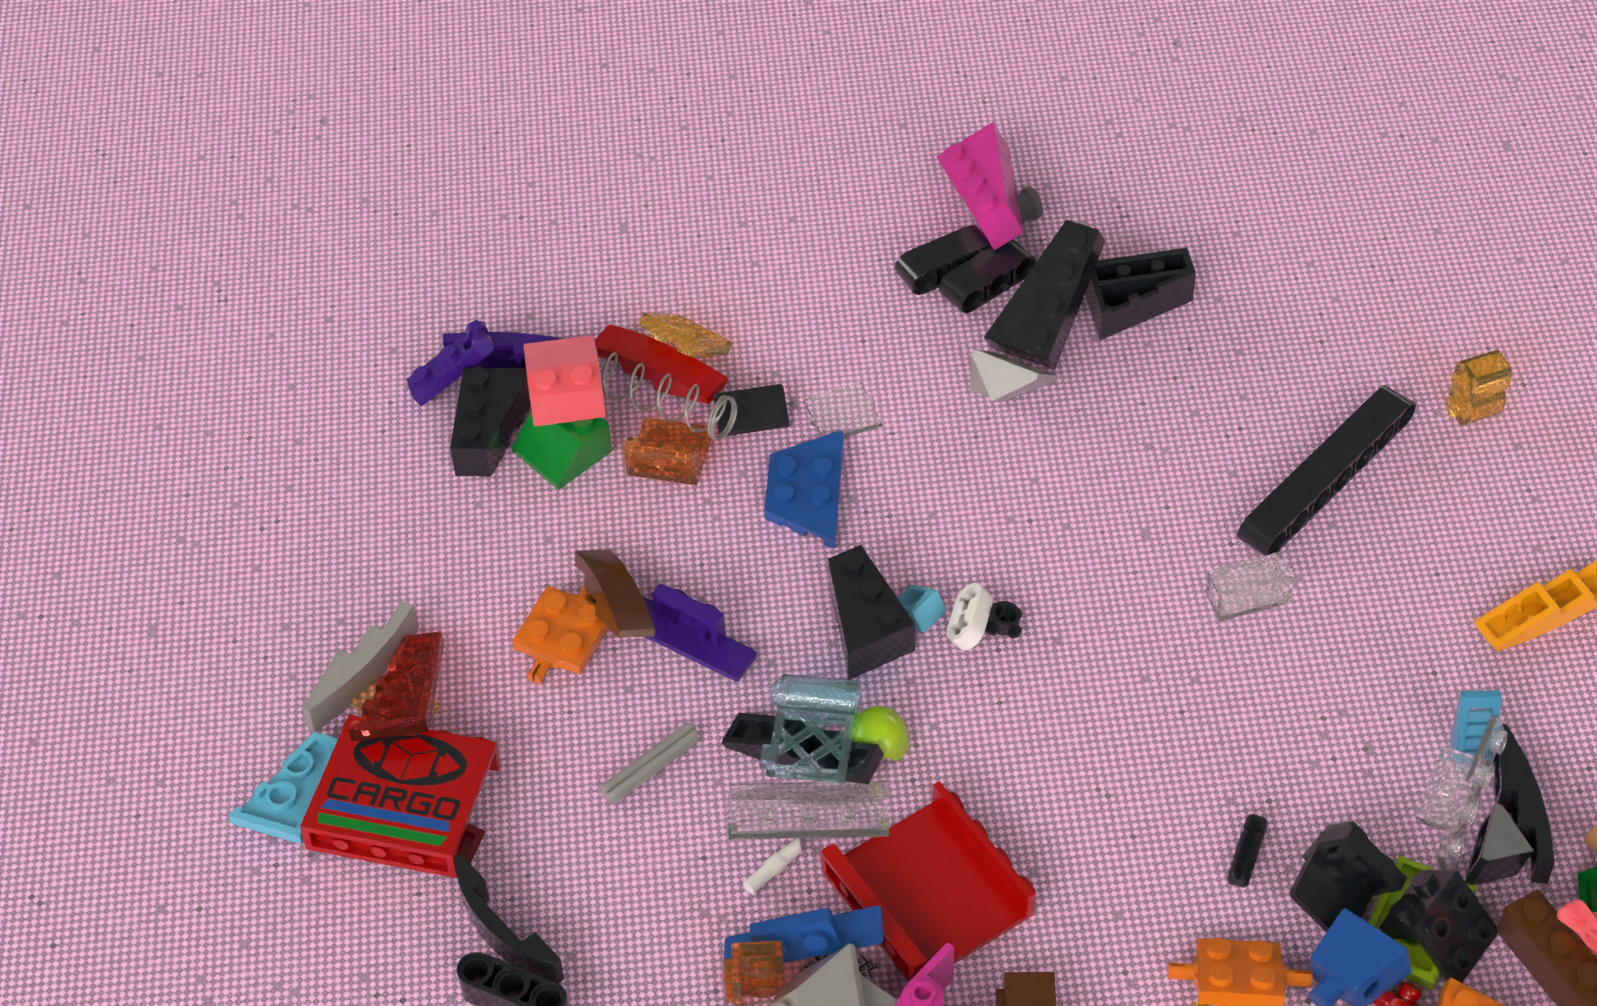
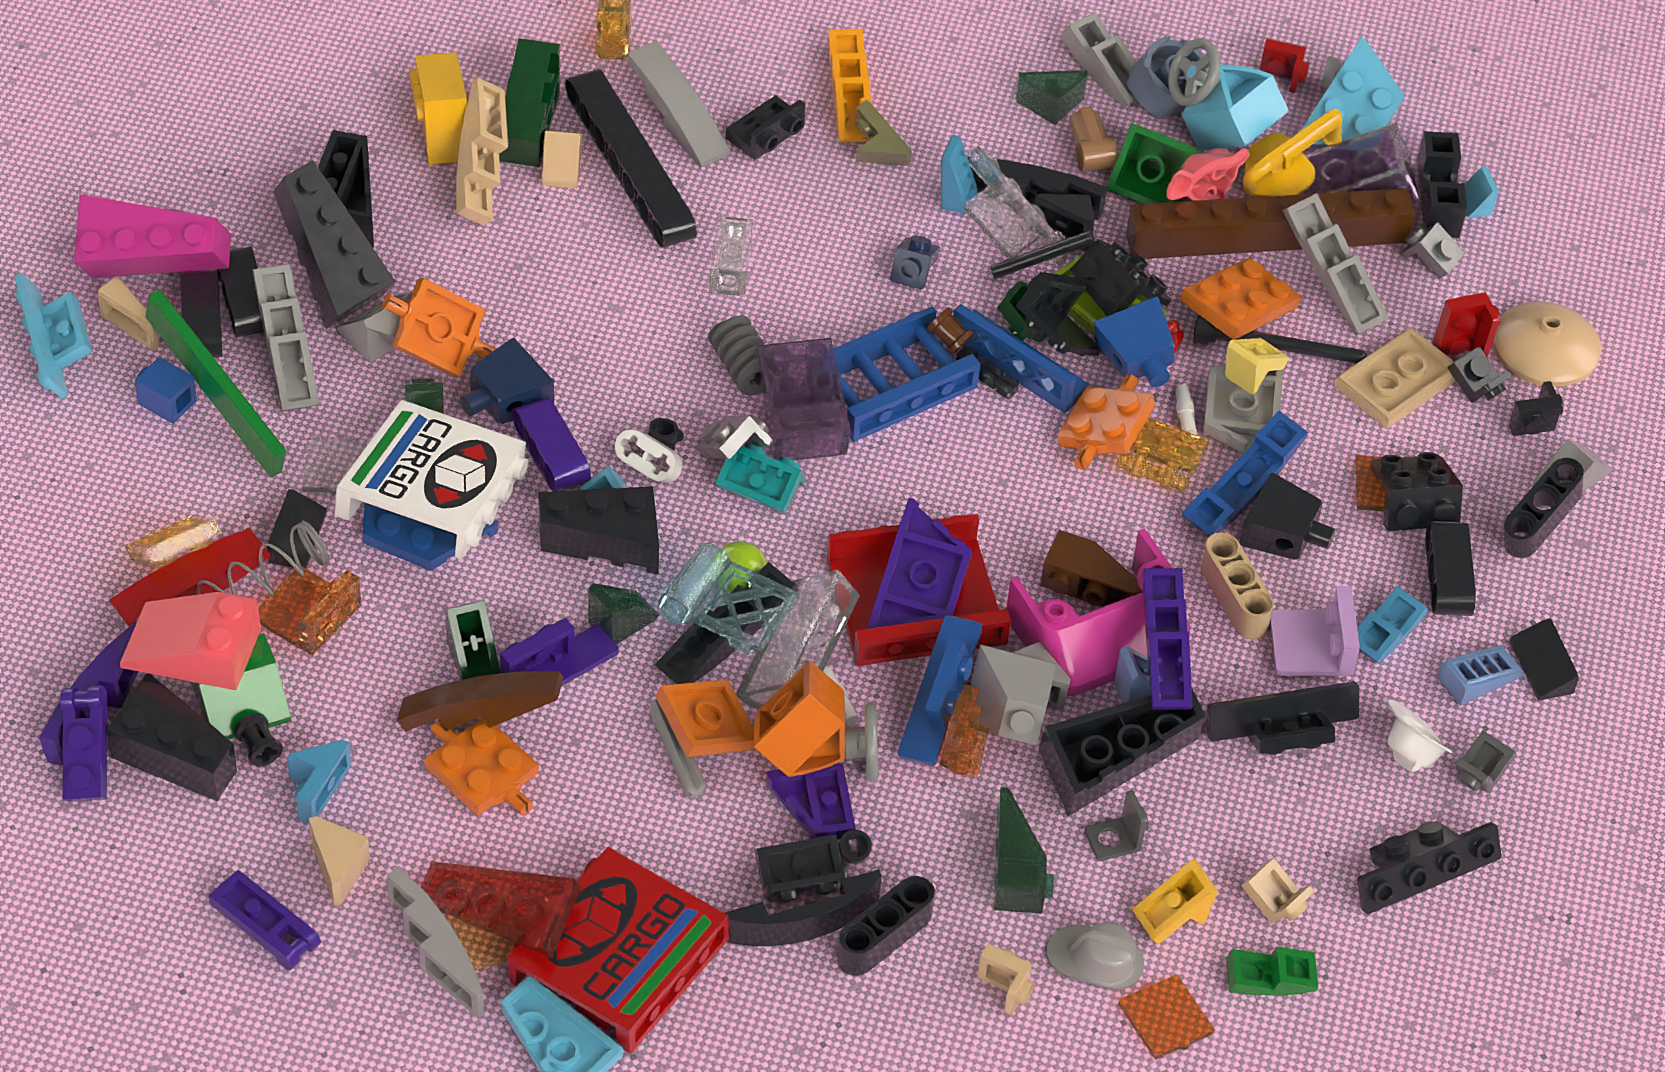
camera: 75 degrees left, 0 degrees up
(341, 547) = (264, 919): none -> dark purple plate
(416, 569) = (340, 855): none -> tan slope
(501, 527) = (319, 774): none -> dark azure slope
(517, 471) = (258, 739): none -> black bush
(549, 903) = (800, 868): none -> black bracket
(591, 933) = (862, 843): none -> black hinge
(637, 891) = (816, 800): none -> dark purple wing
(683, 767) = (706, 717): none -> orange plate
(688, 565) = (471, 640): none -> dark green slope
(693, 849) = (806, 730): none -> orange piece
(772, 654) = (618, 611): none -> clear green slope
(844, 470) = (435, 472): none -> white panel
(848, 270) = (165, 390): none -> blue brick
(860, 292) = (215, 383): none -> green tile
(865, 179) = (55, 331): none -> medium azure bracket
(919, 213) = (126, 312): none -> tan slope
(936, 874) = (921, 573): none -> dark purple wing
(941, 542) = (551, 444): none -> dark purple beam
(942, 435) = (425, 393): none -> clear green slope
(947, 316) = (285, 337): none -> light grey slope
(992, 485) = (506, 381): none -> dark blue torso
(996, 710) = (761, 478): none -> teal bracket
(1011, 407) = (438, 327): none -> orange plate
(1026, 670) = (726, 437): none -> flat silver bracket
(1097, 703) = (803, 400): none -> clear purple slope
(1133, 641) = (737, 348): none -> dark grey piece
(1171, 798) = (910, 398): none -> blue fence
(1240, 355) = (479, 150): none -> tan slope
(1263, 792) = (950, 331): none -> reddish brown bush
(1287, 310) = (439, 104): none -> yellow wedge
(1289, 839) = (1021, 360): none -> blue fence
(1297, 422) = (561, 159): none -> tan slope
(1331, 371) = (531, 100): none -> dark green wedge
(1353, 734) = (913, 261): none -> dark blue bracket
(1418, 479) = (679, 103): none -> light grey slope
(1422, 838) = (1042, 254): none -> black bar
(1442, 557) = (766, 126): none -> black bracket
(1489, 653) = (885, 145): none -> olive slope

